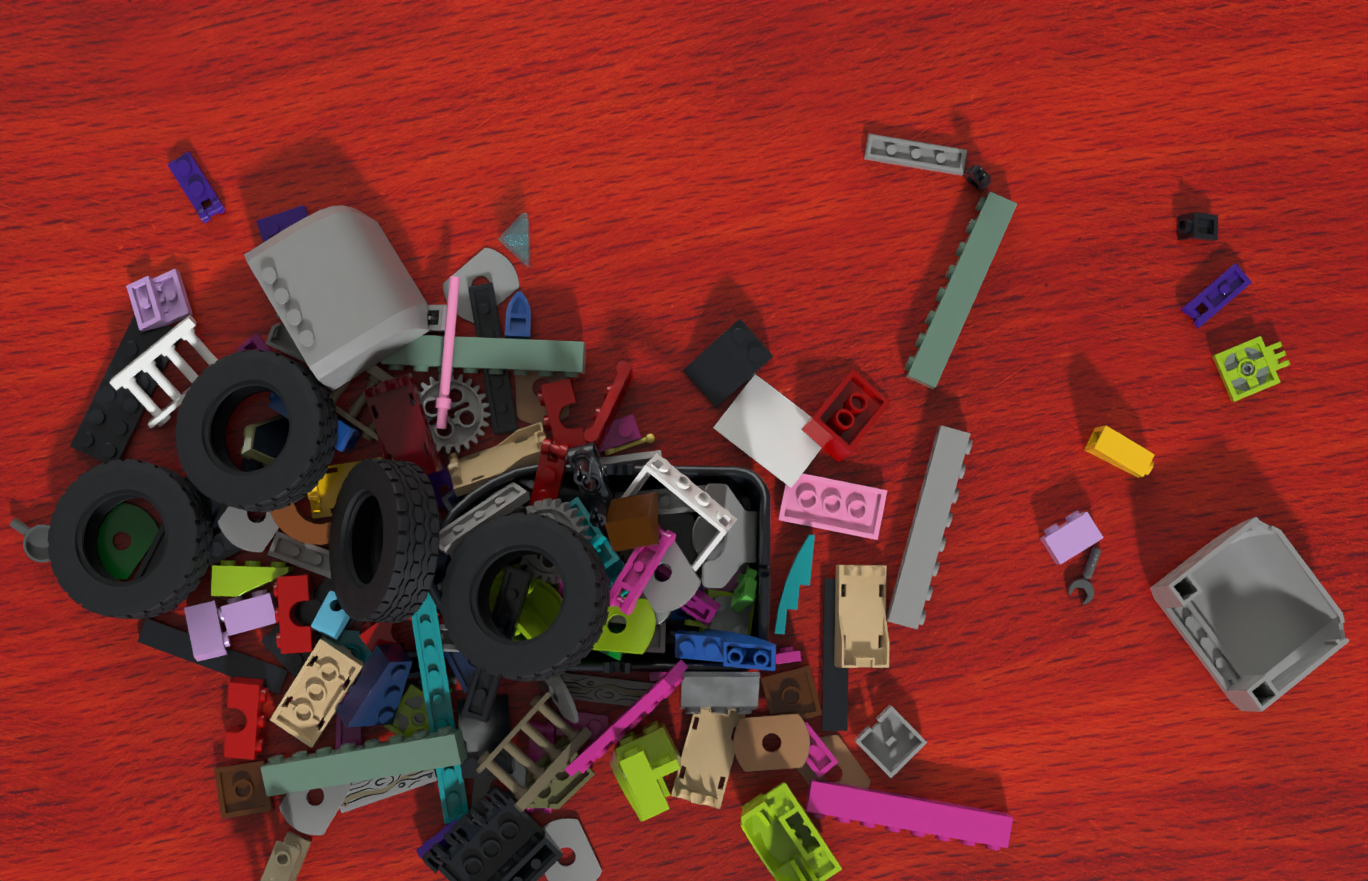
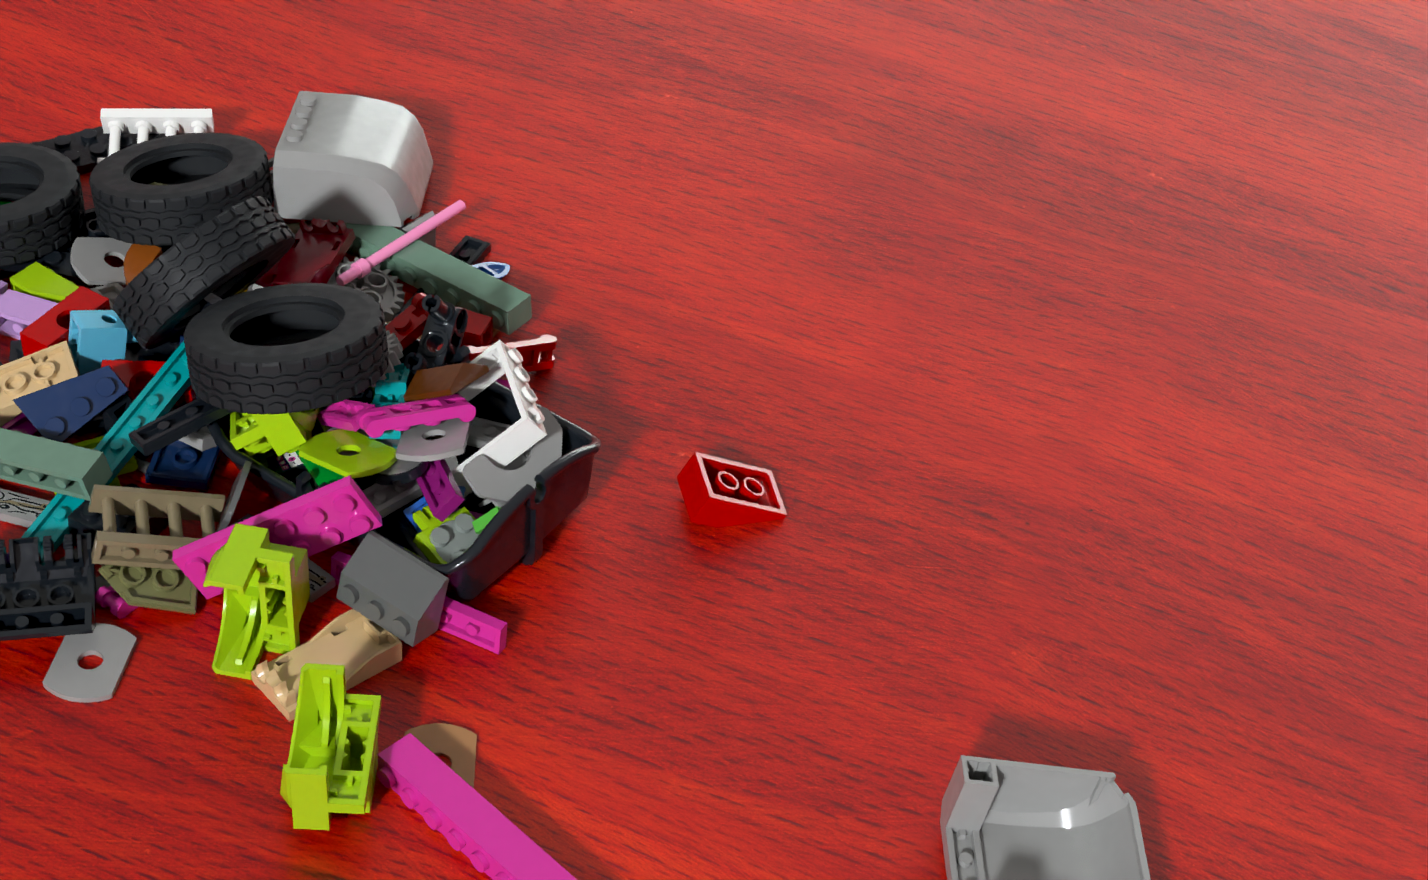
camera: 30 degrees right, 45 degrees down
(159, 300) = (201, 100): lavender slope -> none
(196, 186) = (310, 72): dark purple plate -> none
(489, 265) = (503, 240): light grey piece -> none
(517, 239) = (544, 228): clear light blue slope -> none
(726, 647) = (432, 536): blue slope -> none
(728, 363) = (654, 399): black slope -> none
(769, 430) = (643, 464): white sticker -> none
(792, 693) = (460, 667): reddish brown plate -> none
(793, 747) = (420, 698): medium nougat piece -> none
(798, 575) = (561, 579): teal slope -> none
(819, 756) = (437, 719): dark pink plate -> none
(833, 678) = (539, 668): black tile -> none
(834, 506) = (654, 550): bright pink plate -> none
(861, 617) = (597, 645): tan piece -> none
(890, 741) = (530, 769): light grey piece -> none
(915, 154) = (971, 369): light grey tile -> none
(928, 527) = (734, 620): light grey brick -> none
(961, 289) = (930, 471): sand green brick -> none
(977, 177) = (1018, 403): black plate -> none
(1071, 537) = (887, 713): lavender brick -> none
(1087, 574) = (869, 765): dark grey piece -> none
(1120, 451) = (999, 665): yellow slope -> none
(1197, 226) = (1228, 555): black bracket -> none
(1217, 295) = (1208, 617): dark purple plate -> none
(1249, 367) = (1207, 692): lime piece -> none

